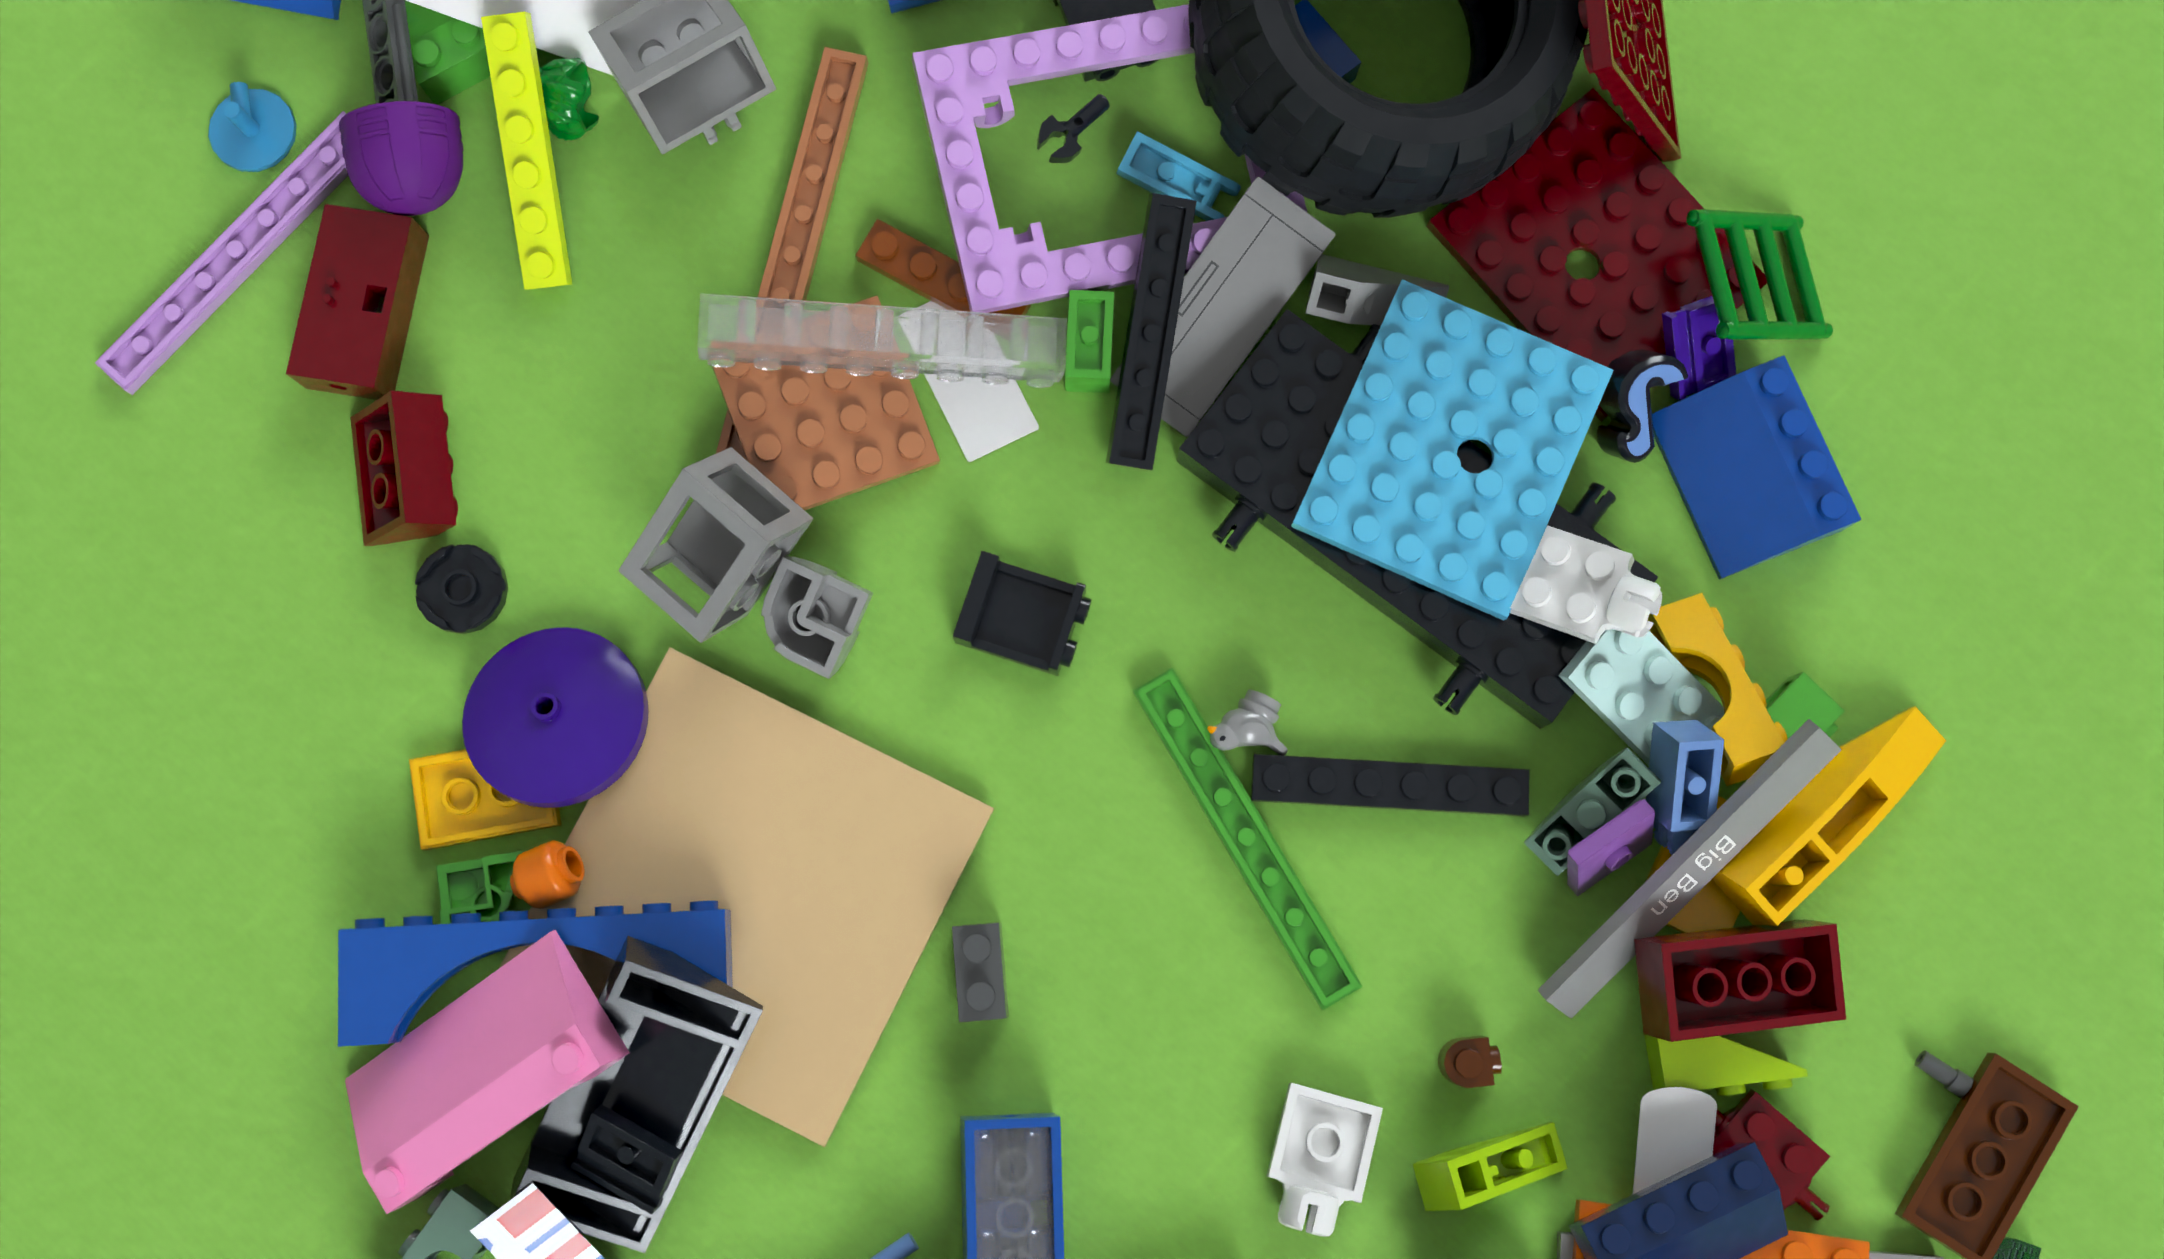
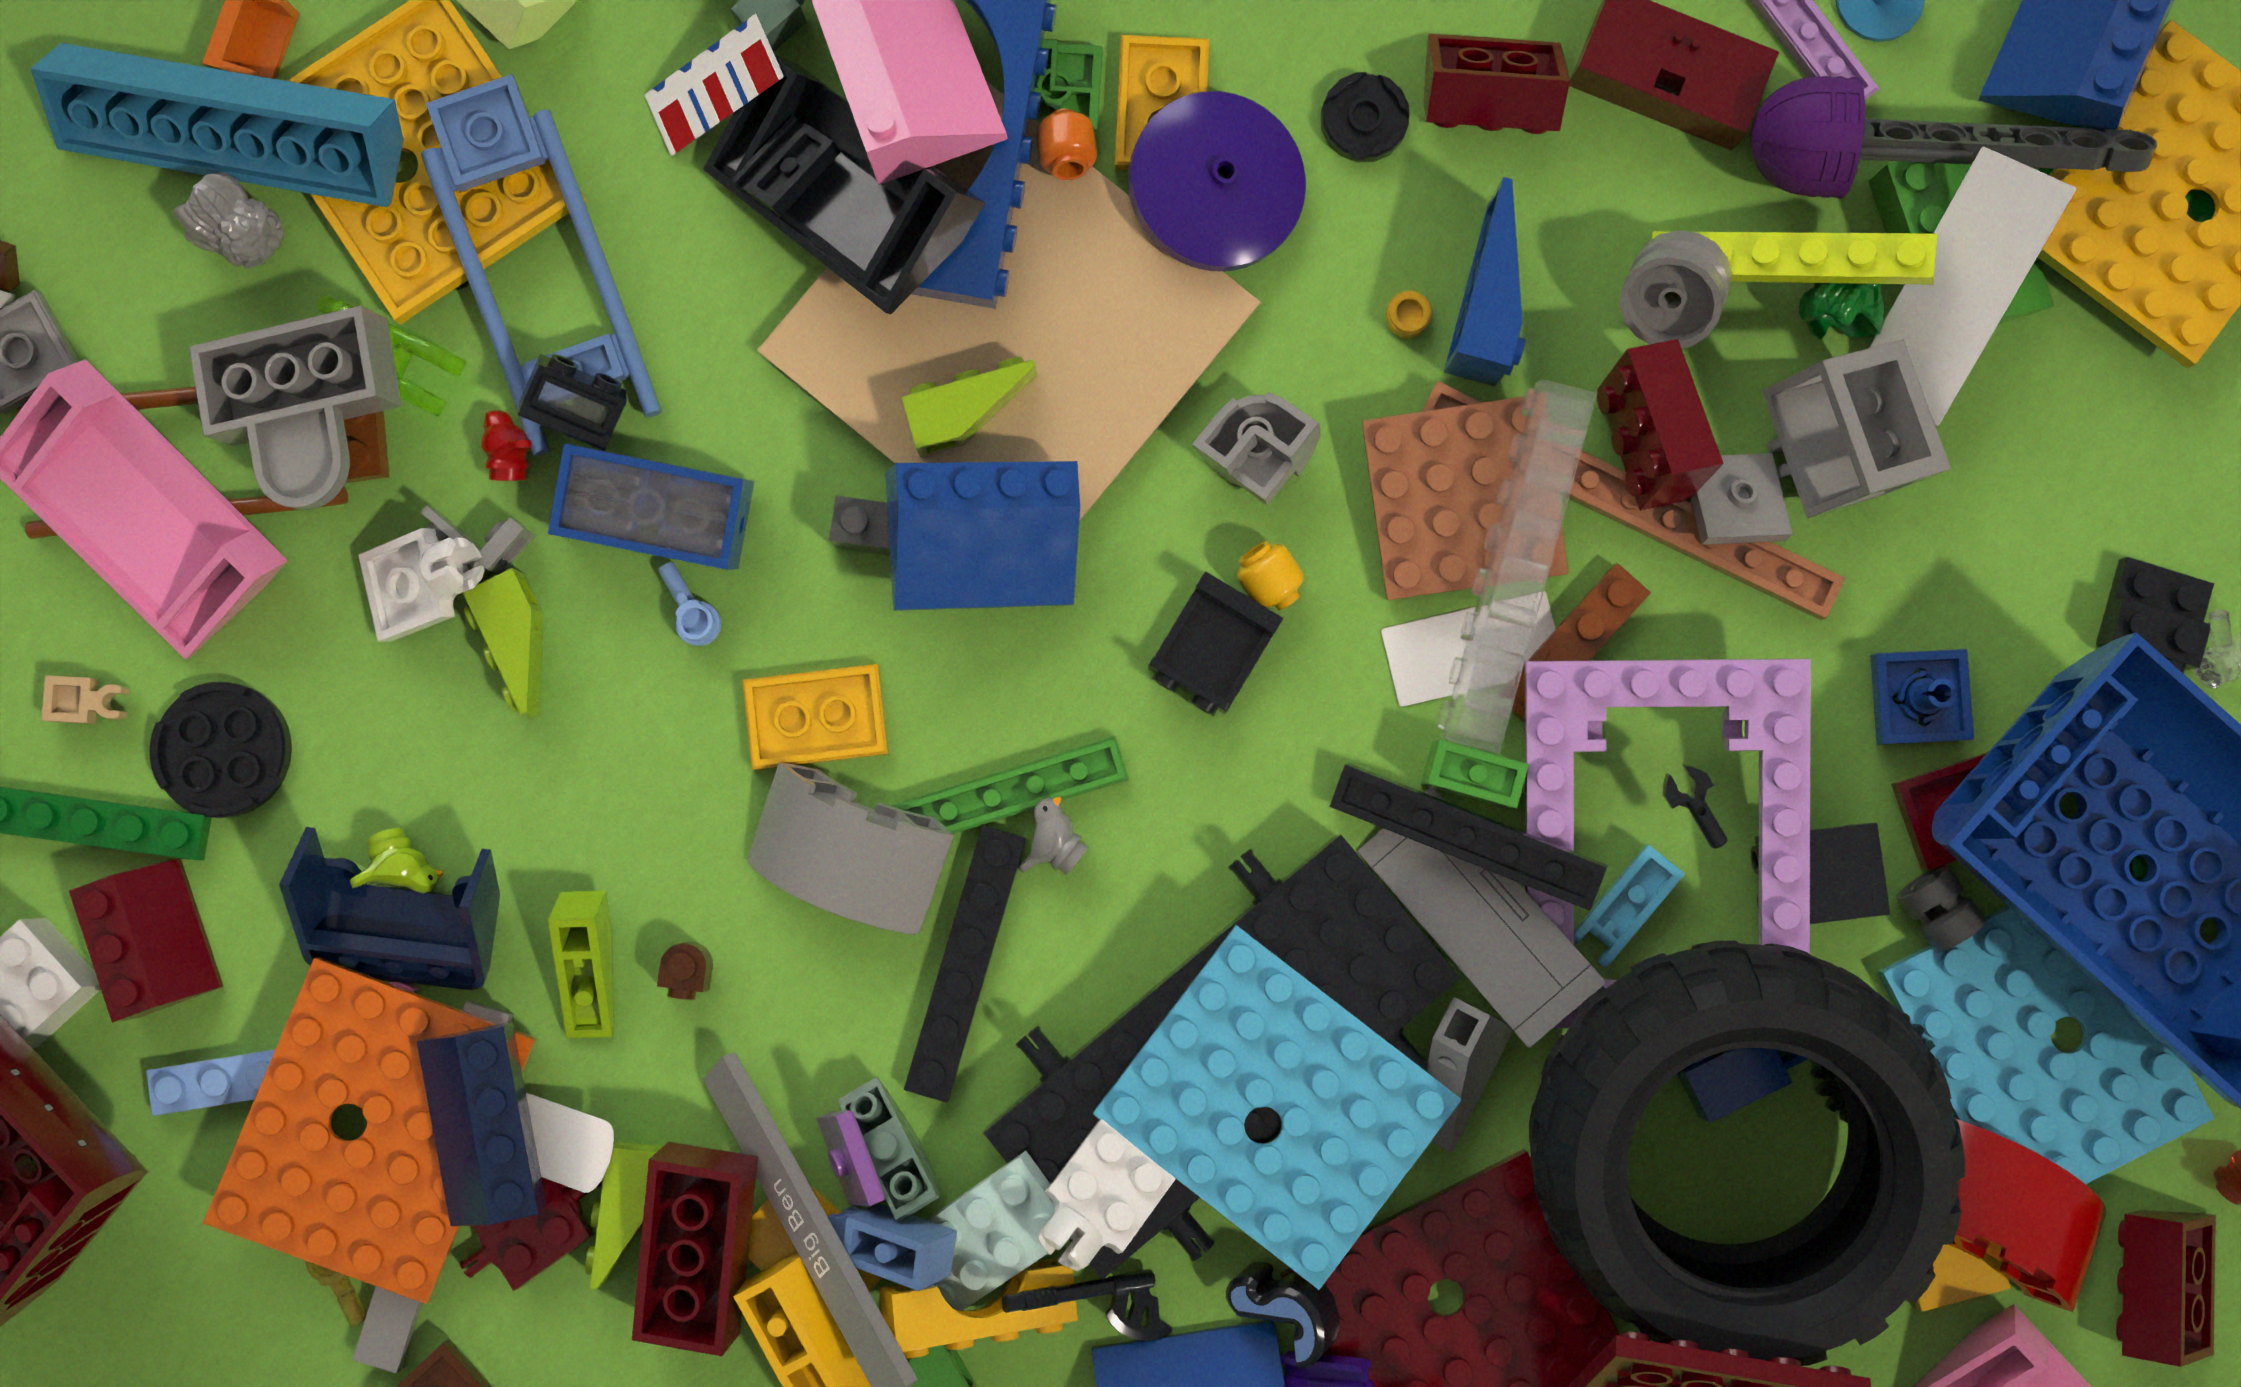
camera: 100 degrees right, 5 degrees up
(580, 250) = (1676, 289): none -> light grey wheel
(633, 420) = (1490, 313): none -> blue slope
(646, 499) = (1408, 314): none -> yellow tile
(716, 237) = (1658, 425): none -> dark red brick
(723, 543) = (1351, 374): light grey piece -> none
(770, 157) = (1742, 502): none -> light grey plate
(847, 924) = (956, 411): none -> lime slope
(941, 575) = (1270, 575): none -> yellow head
(966, 862) = (982, 534): none -> blue slope
(1116, 1141) = (696, 620): none -> light blue plate
(1185, 994) = (815, 716): none -> yellow tile
(1315, 928) = (846, 855): none -> light grey panel
(1321, 1156) = (634, 807): white plate -> none
(1658, 563) = (1117, 1285): none -> black piece

